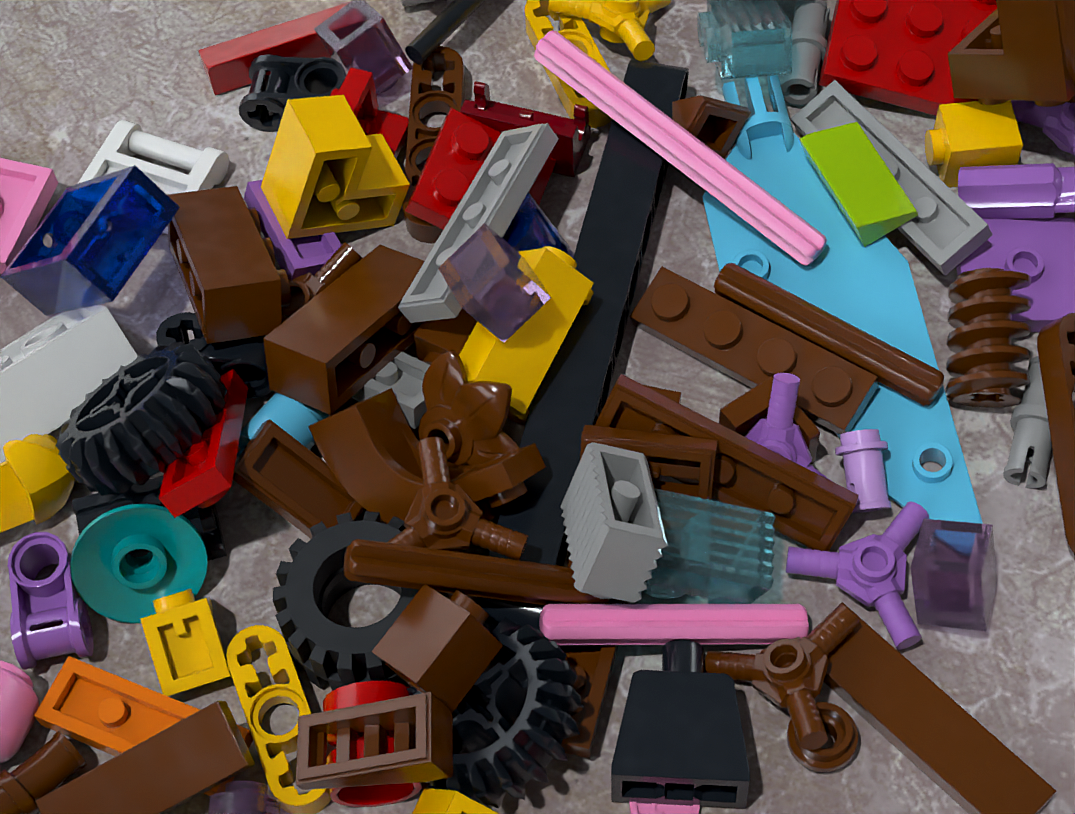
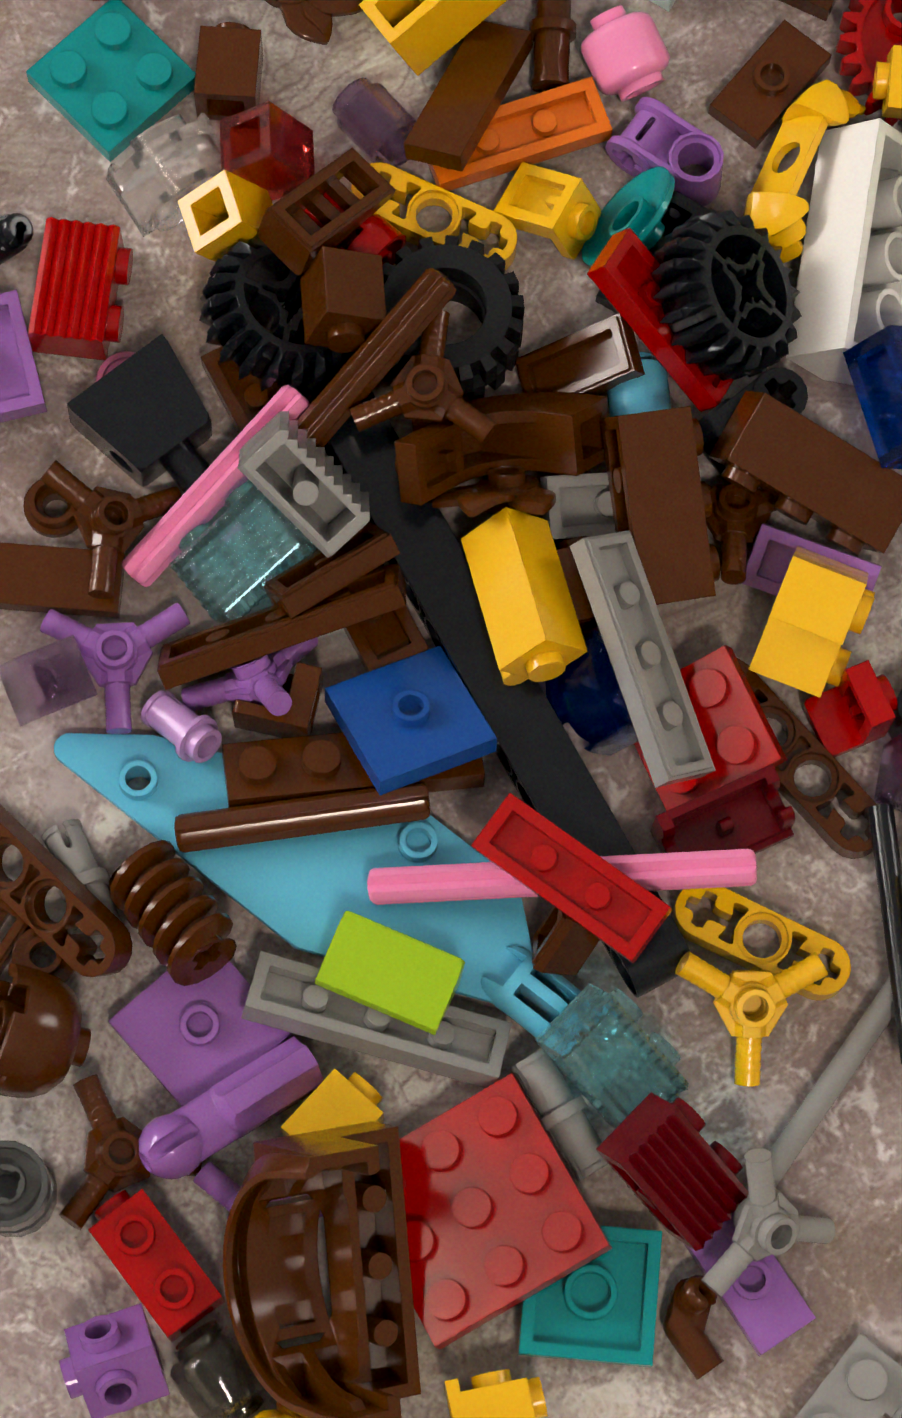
camera: 130 degrees right, 15 degrees up
(494, 283) = (549, 567): brick -> none
(679, 112) = (571, 878): none -> red plate
(686, 329) = (410, 720): none -> blue plate

